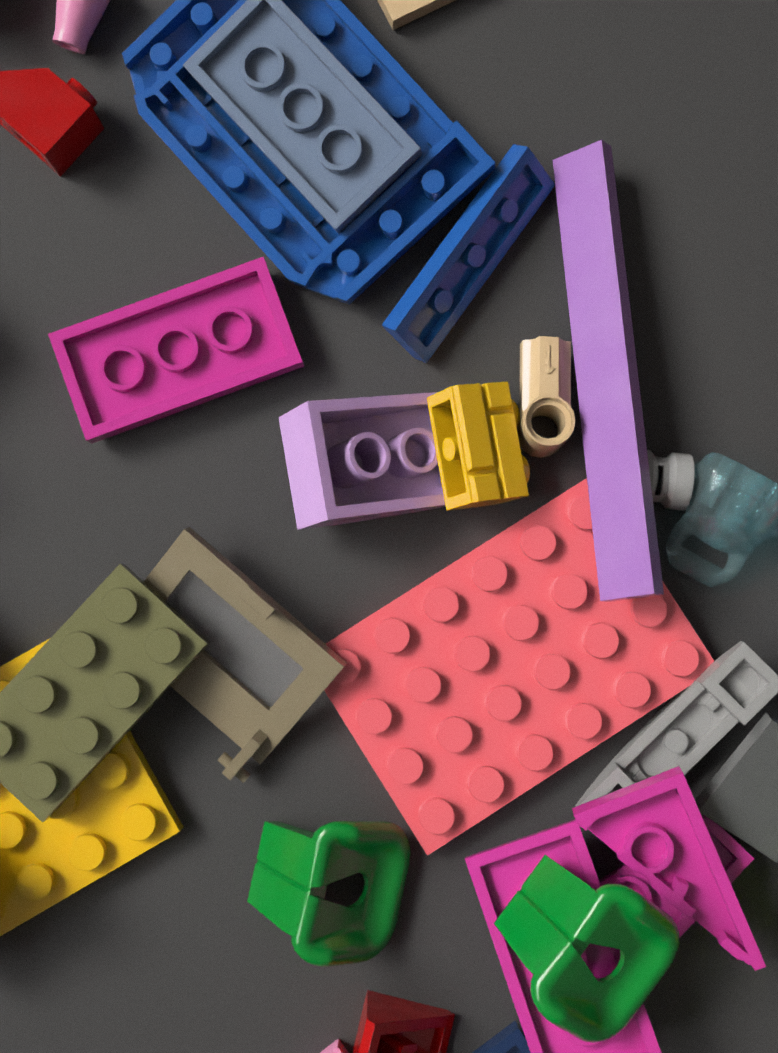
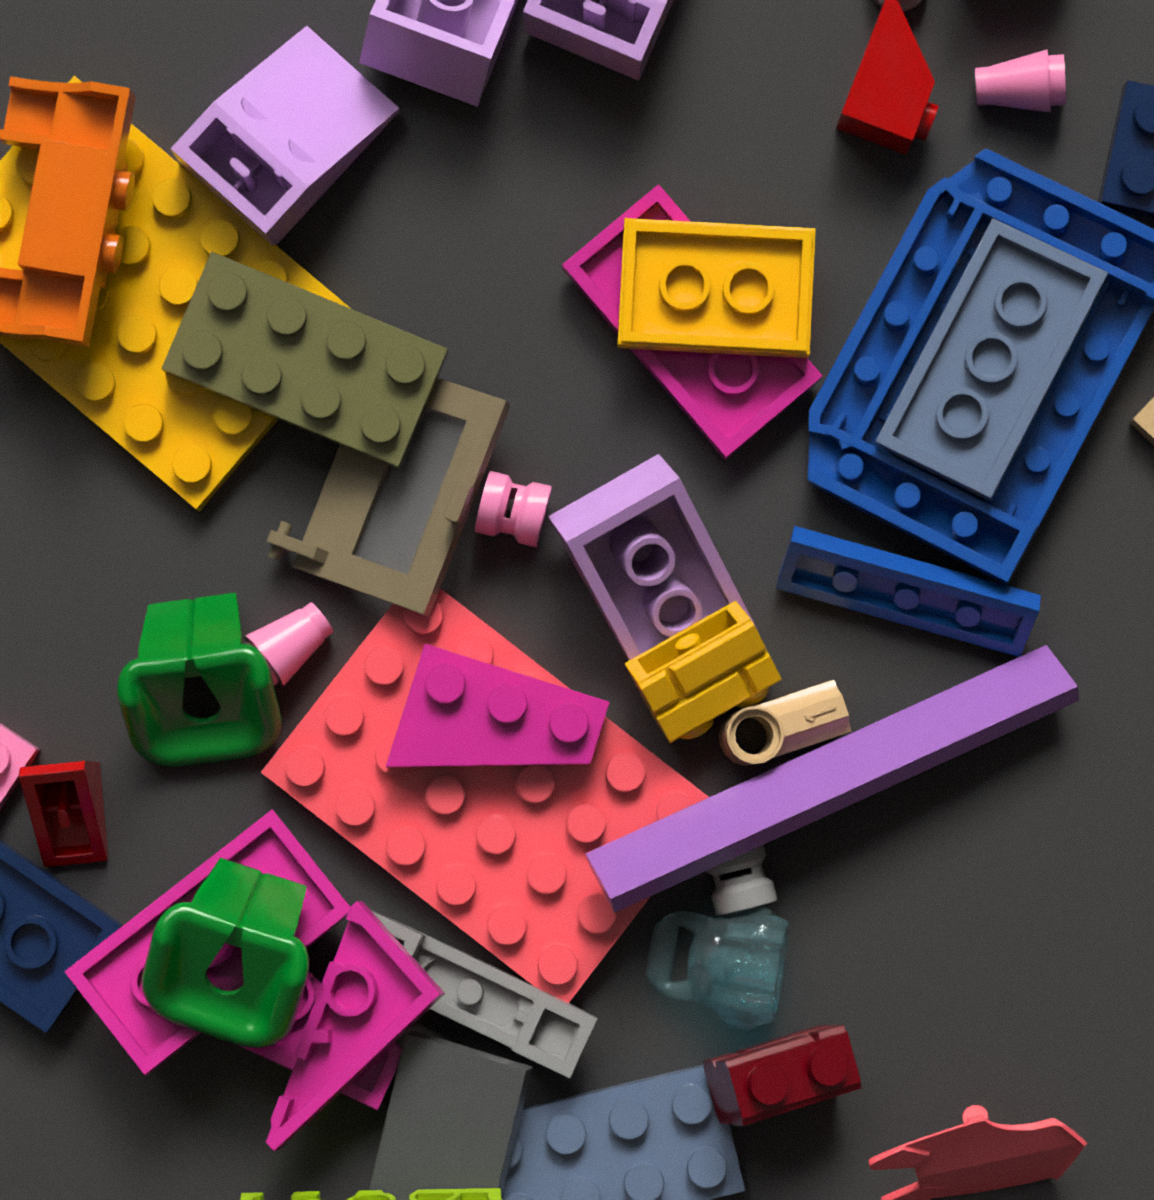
camera: 75 degrees right, 0 degrees up
(154, 316) = (716, 288): none -> yellow tile
(287, 546) = (527, 511): none -> bright pink wheel
(324, 791) = (290, 641): none -> bright pink cone
(452, 640) = (491, 716): none -> dark pink wing

